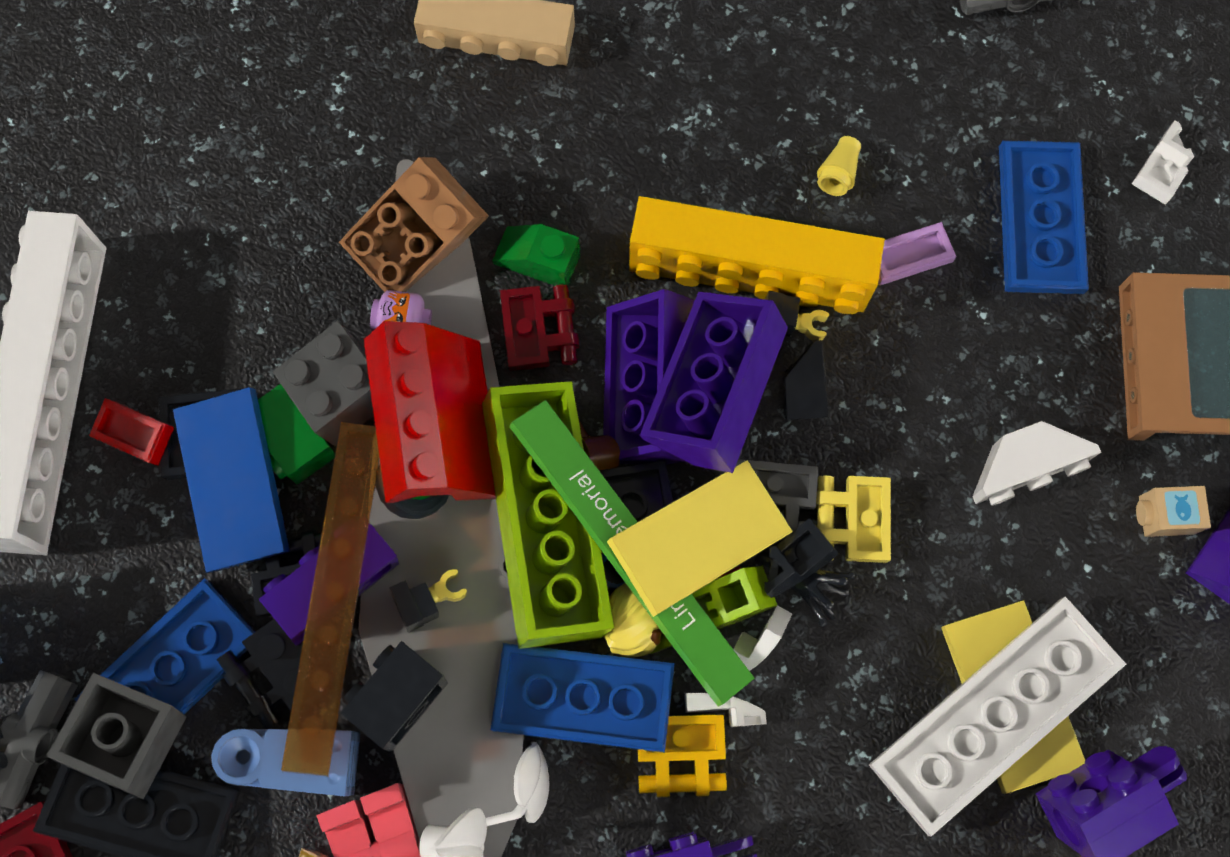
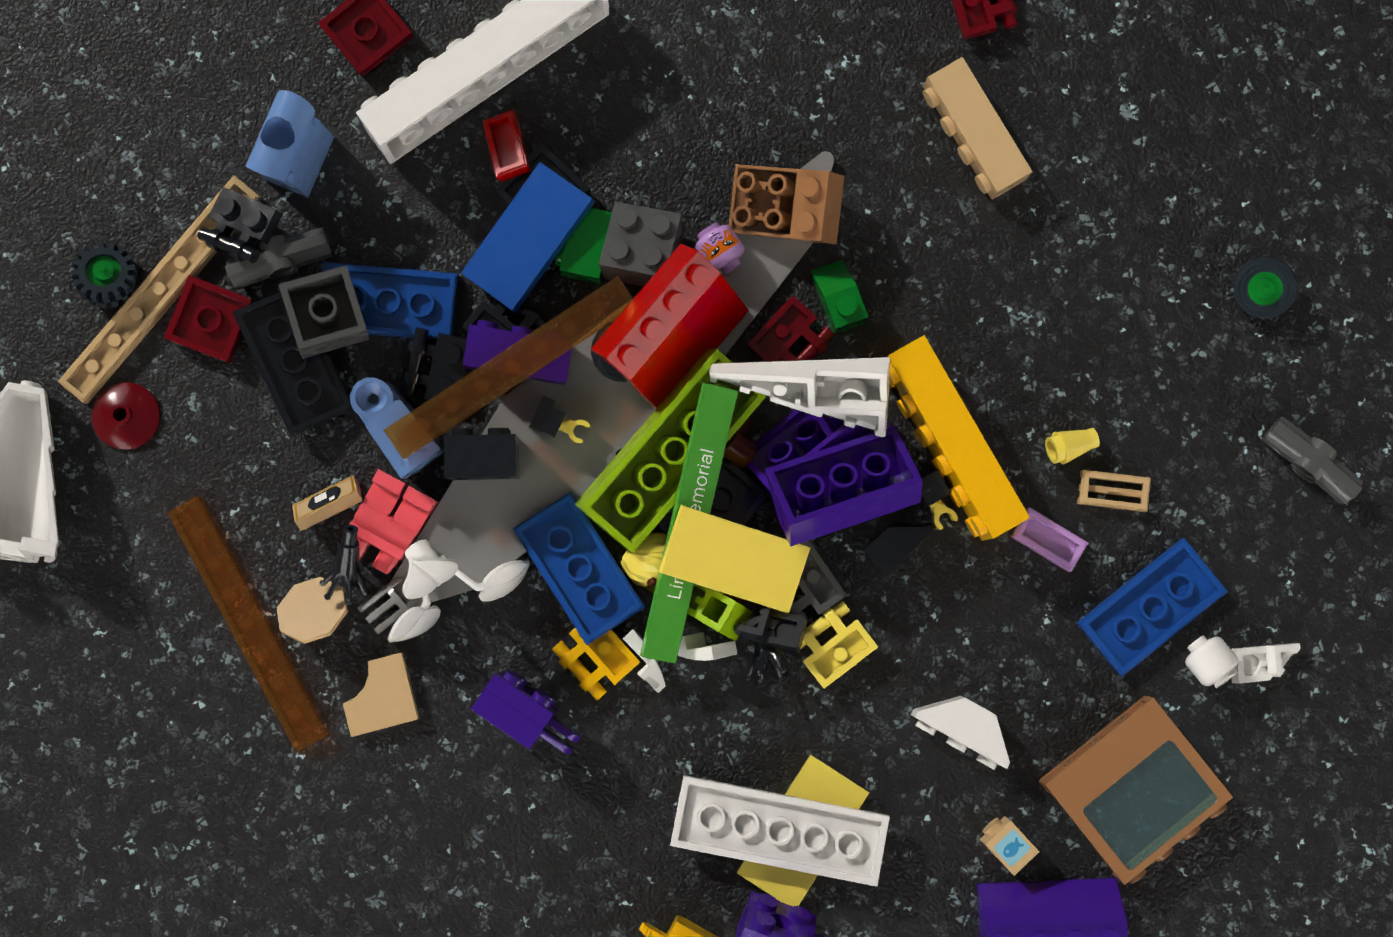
camera: 50 degrees right, 10 degrees up
(621, 309) = (838, 388): none -> white wedge
(890, 187) = (1084, 488): none -> tan tile
(1135, 202) = (1211, 661): none -> white head

